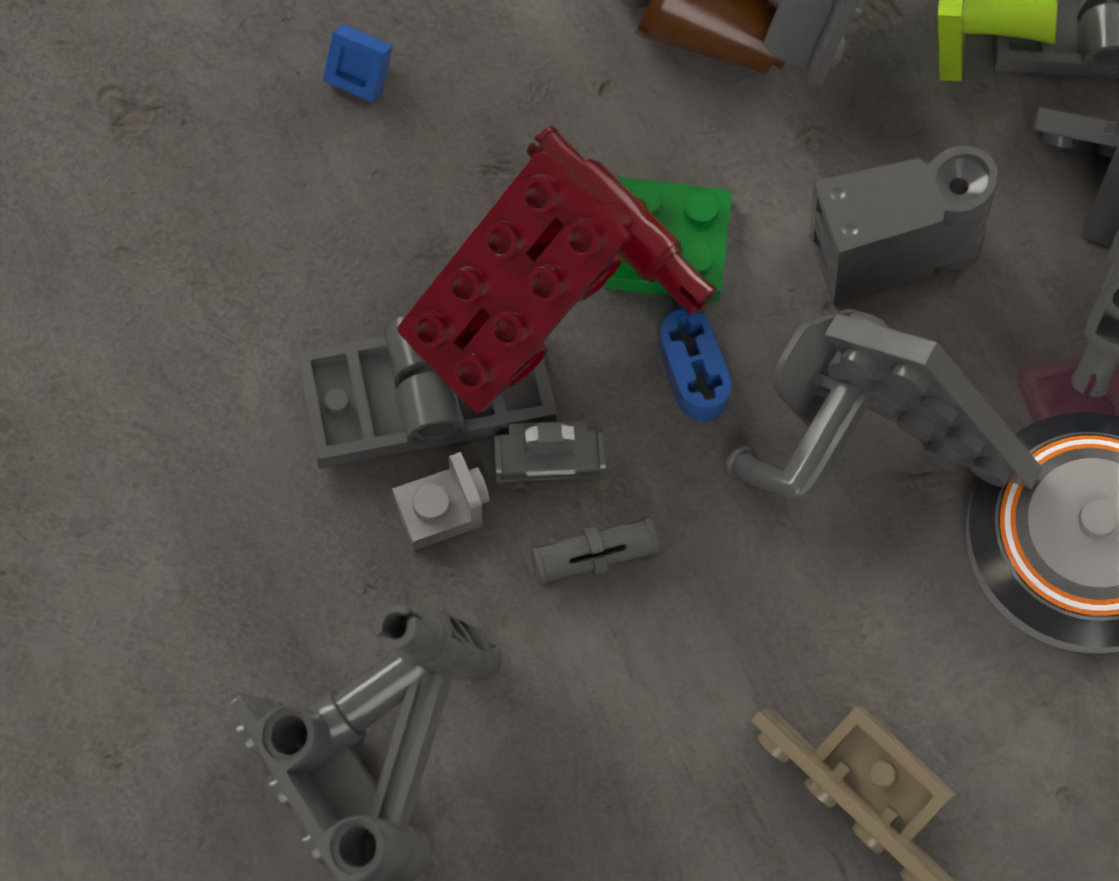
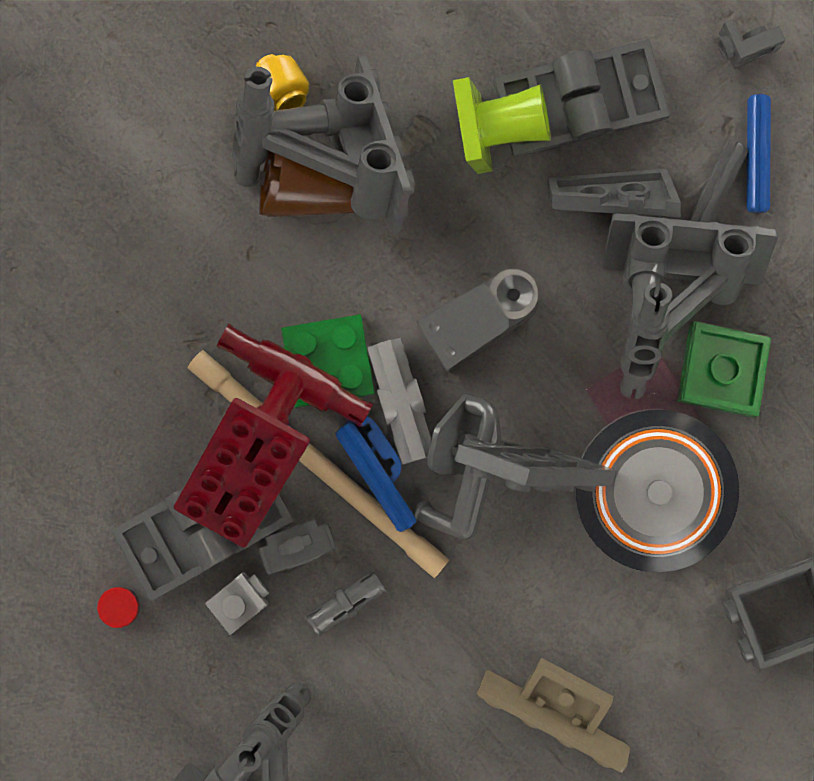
camera: 15 degrees left, 20 degrees up
(268, 460) = (118, 607): none -> red piece
(357, 63) = (76, 297): blue tile -> none
(692, 388) = (375, 477): none -> blue axle
(717, 504) = (415, 546): none -> tan piece
(755, 309) = (400, 400): none -> light grey piece

